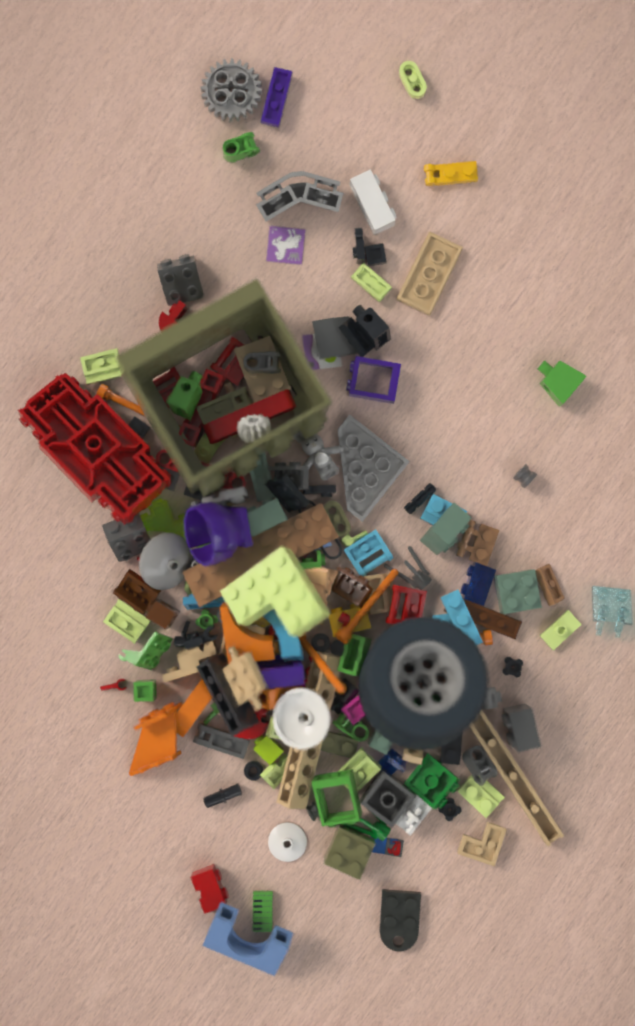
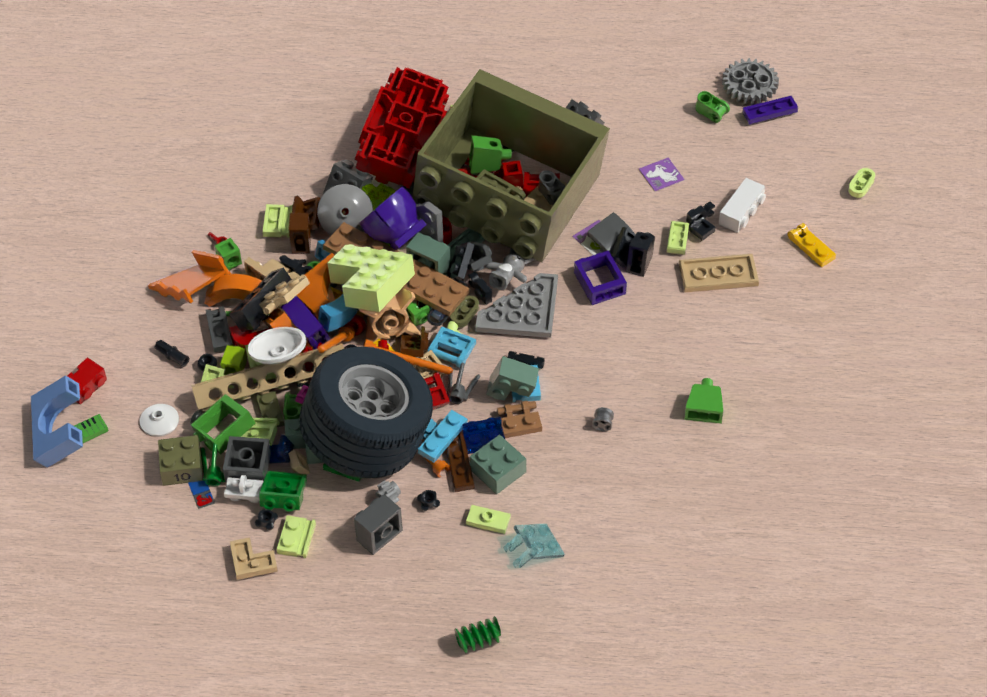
camera: 55 degrees right, 35 degrees down
(150, 654) = (264, 241): bright green plate -> none
(299, 192) = (693, 144): light grey brick -> none
(399, 918) = (141, 534): pearl dark grey plate -> none
(451, 752) = (327, 491): black plate -> none
(480, 765) = (321, 515): dark grey piece -> none
(515, 779) = (327, 550): tan tile -> none
(549, 584) = (522, 486): medium nougat plate -> none

